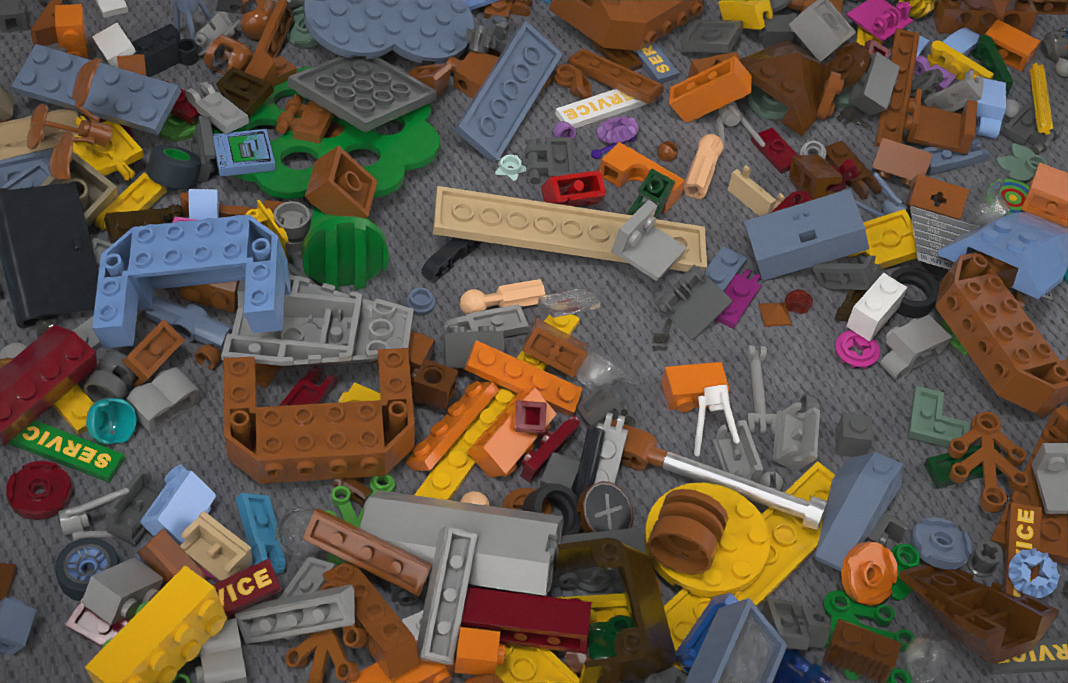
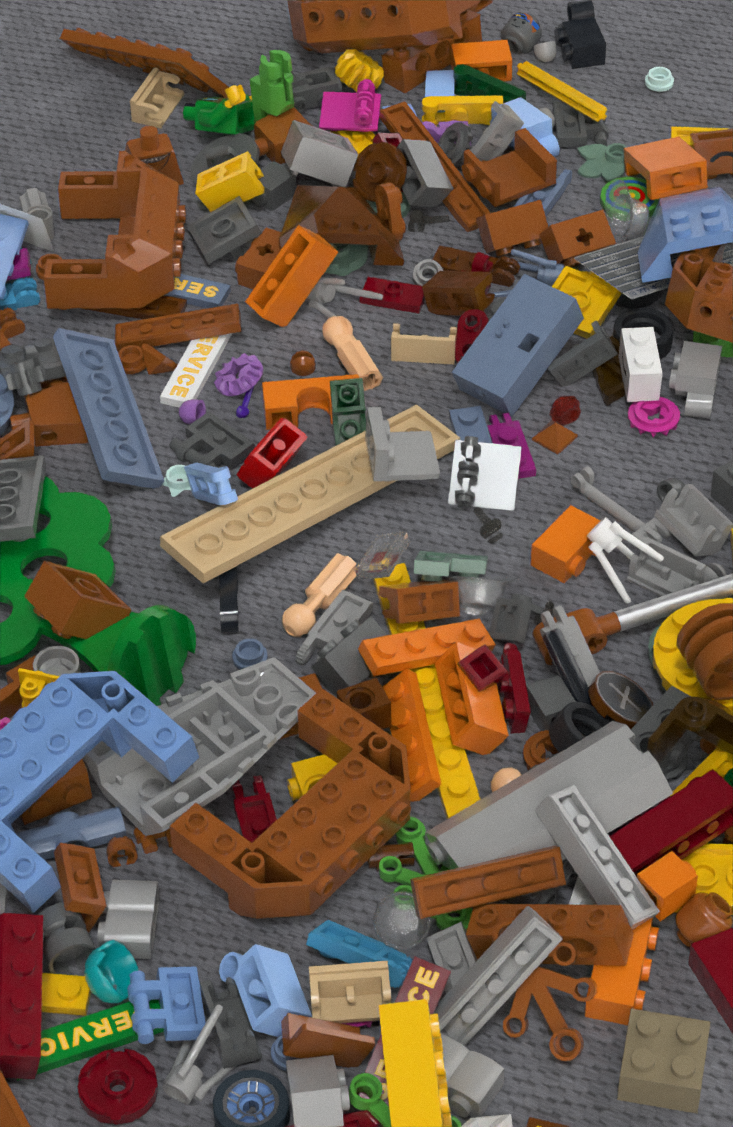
camera: 35 degrees left, 5 degrees down
(120, 469) = (179, 1003): none -> medium blue plate
(512, 177) = (210, 483): none -> light blue plate
(595, 332) = (438, 564): none -> sand green plate

